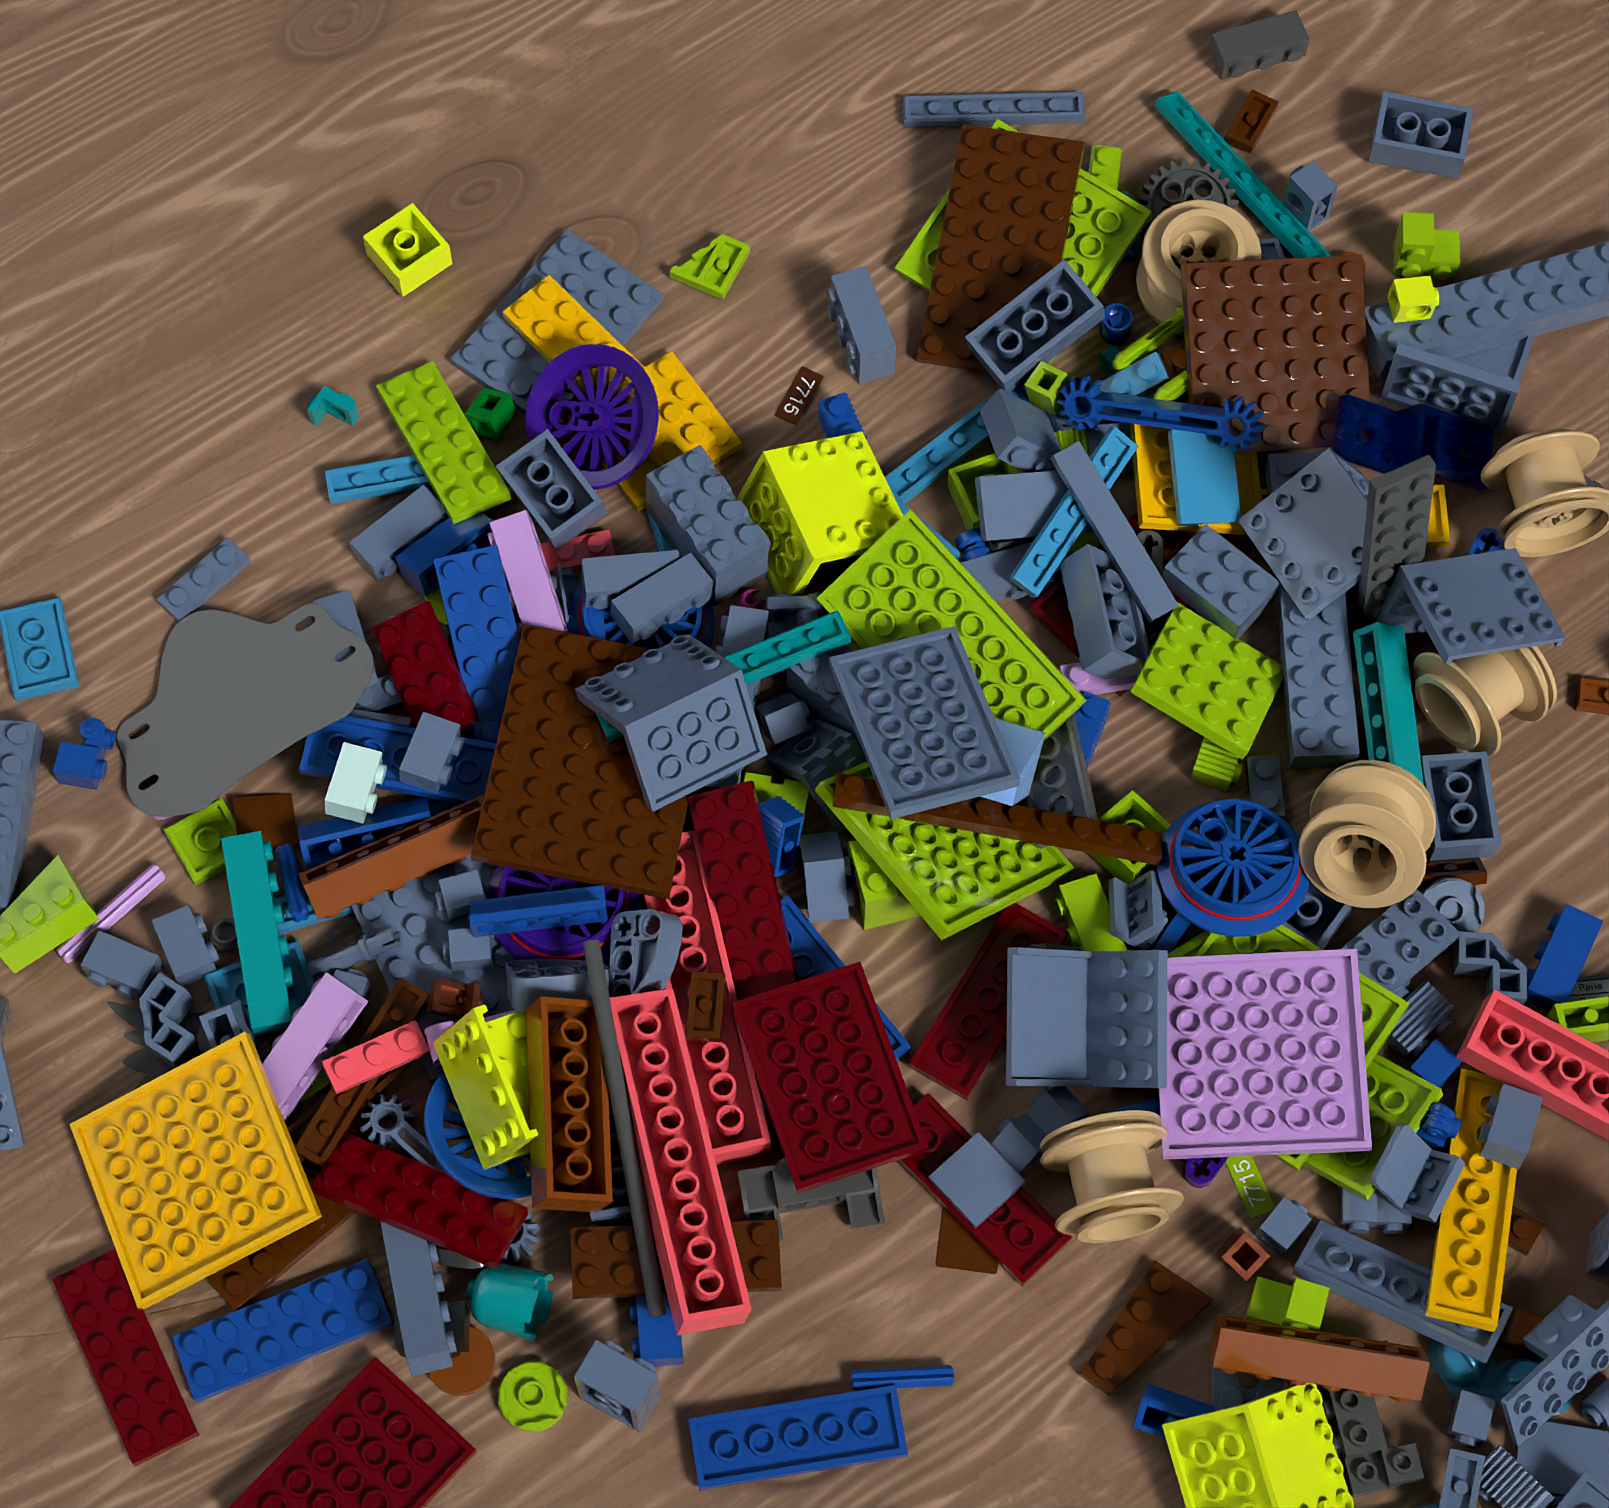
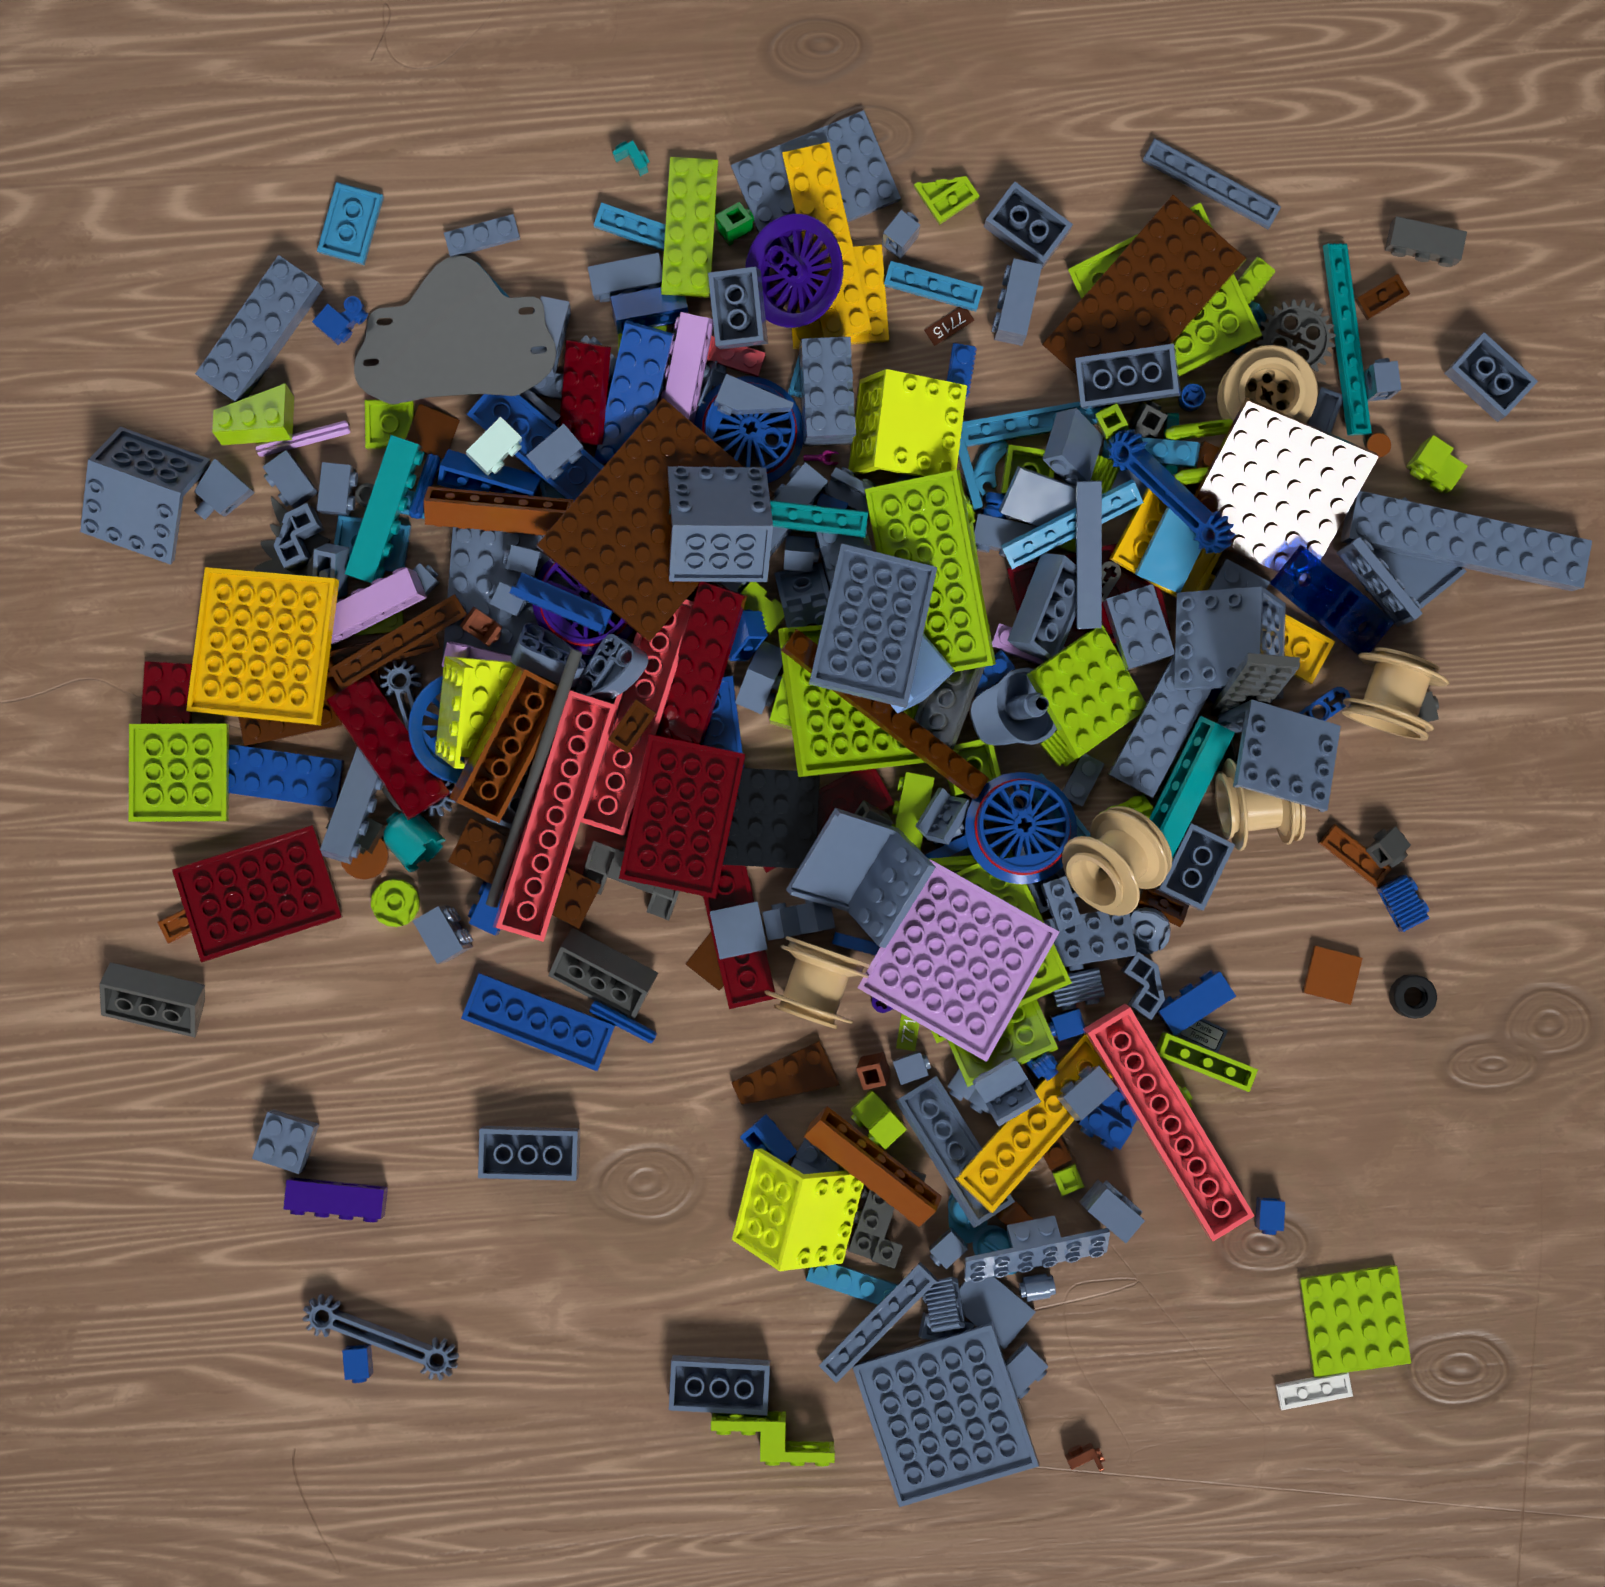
camera: 30 degrees right, 20 degrees up
(42, 1024) = (220, 491): none -> sand blue torso
(169, 1384) = (178, 772): none -> lime plate
(364, 949) = (445, 560): sand blue pin -> none
(375, 1057) = (410, 638): coral plate -> none
(407, 250) = (745, 66): neon yellow brick -> none
(662, 598) = (765, 430): sand blue brick -> none
(688, 324) = (901, 233): none -> sand blue brick
(756, 362) = (933, 286): none -> dark azure plate
(820, 243) = (1027, 225): none -> sand blue brick
(842, 1331) = (602, 973): none -> dark grey slope
(934, 510) = (985, 466): none -> dark azure piece
(941, 1026) = (773, 819): none -> black plate
(1084, 361) = (1147, 419): none -> dark grey brick
(1141, 745) = (1012, 712): none -> sand blue piece
(1336, 919) = (1061, 903): none -> sand blue brick
(1412, 299) = (1394, 506): neon yellow brick -> none
(1555, 1253) = (1068, 1179): none -> lime tile
(1558, 1153) = (1110, 1121): none -> blue plate

